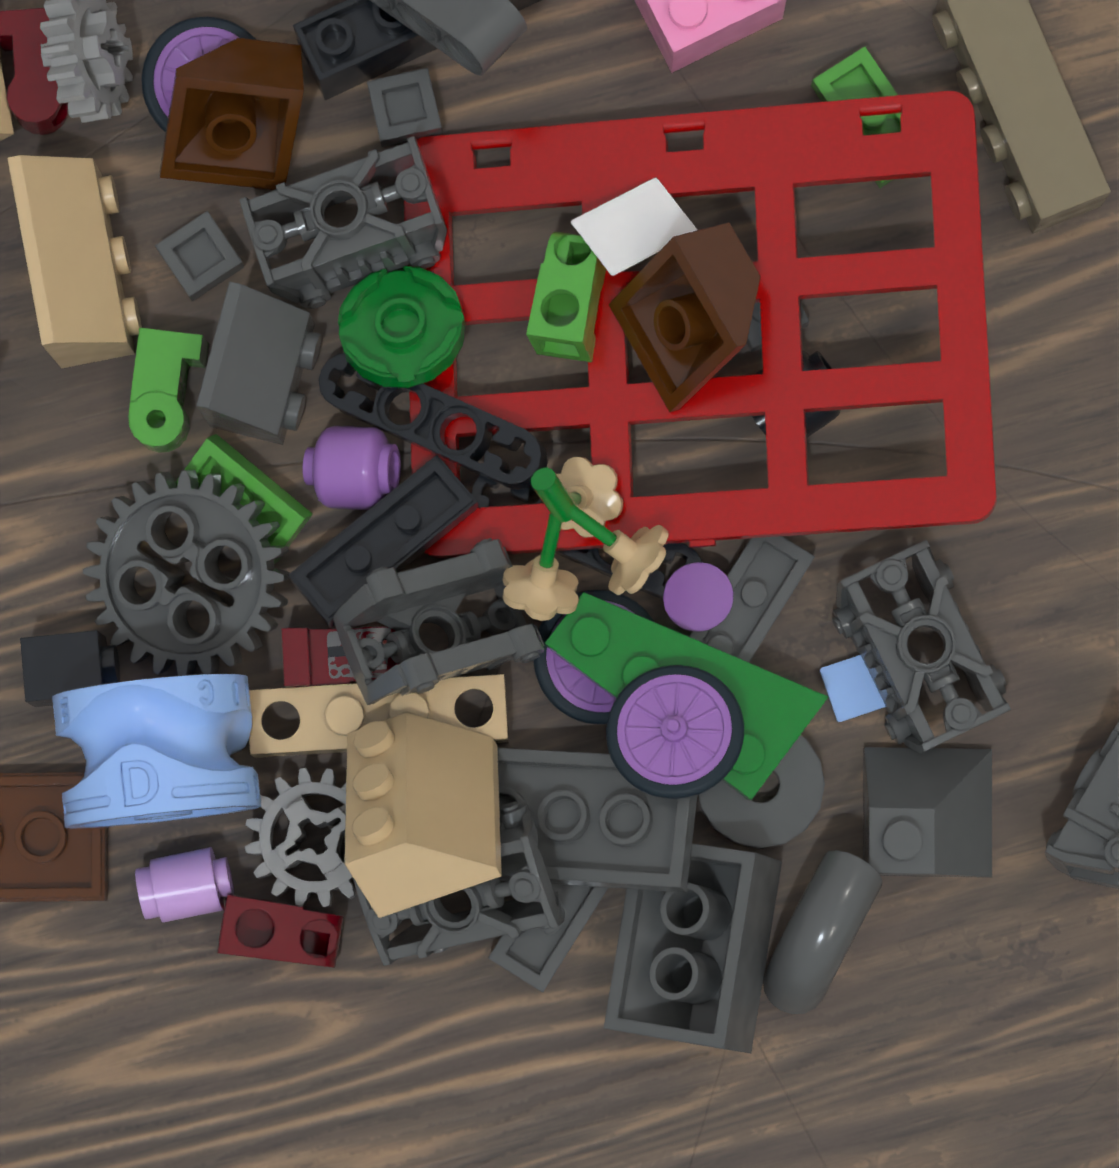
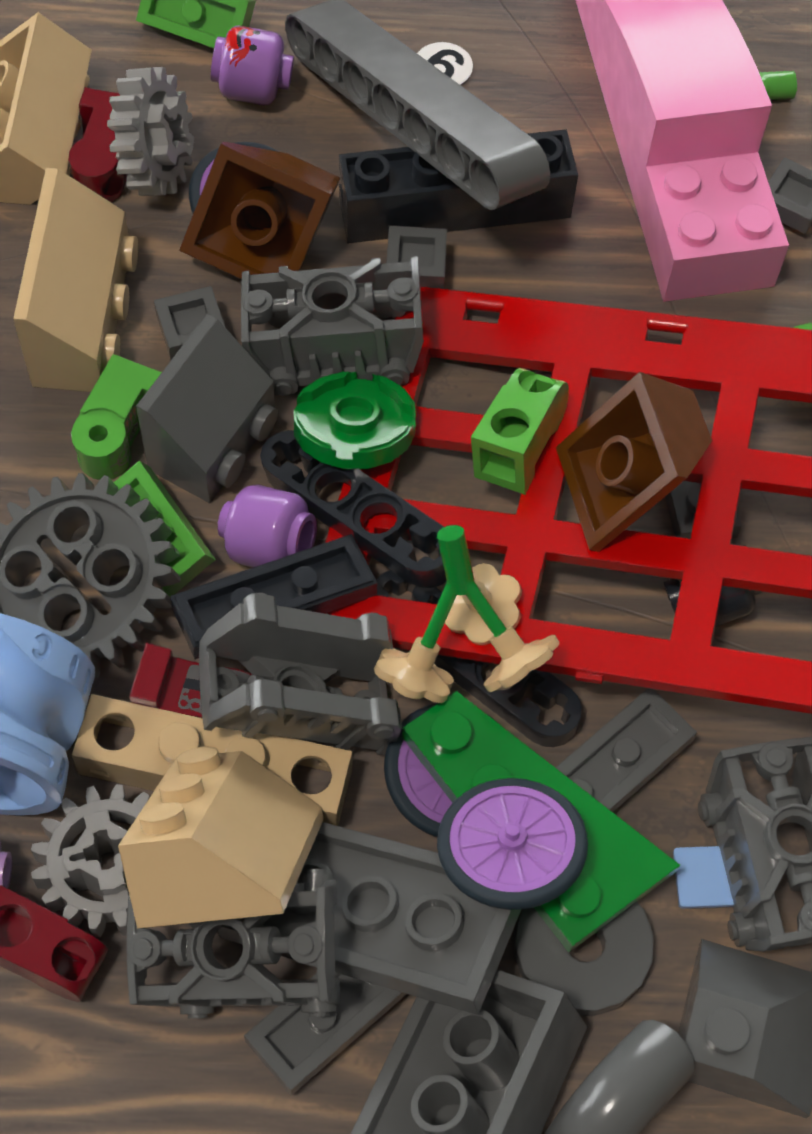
camera: 10 degrees right, 20 degrees down
(632, 226) = (589, 379): white sticker -> none
(698, 596) = (569, 737): medium lavender sticker -> none

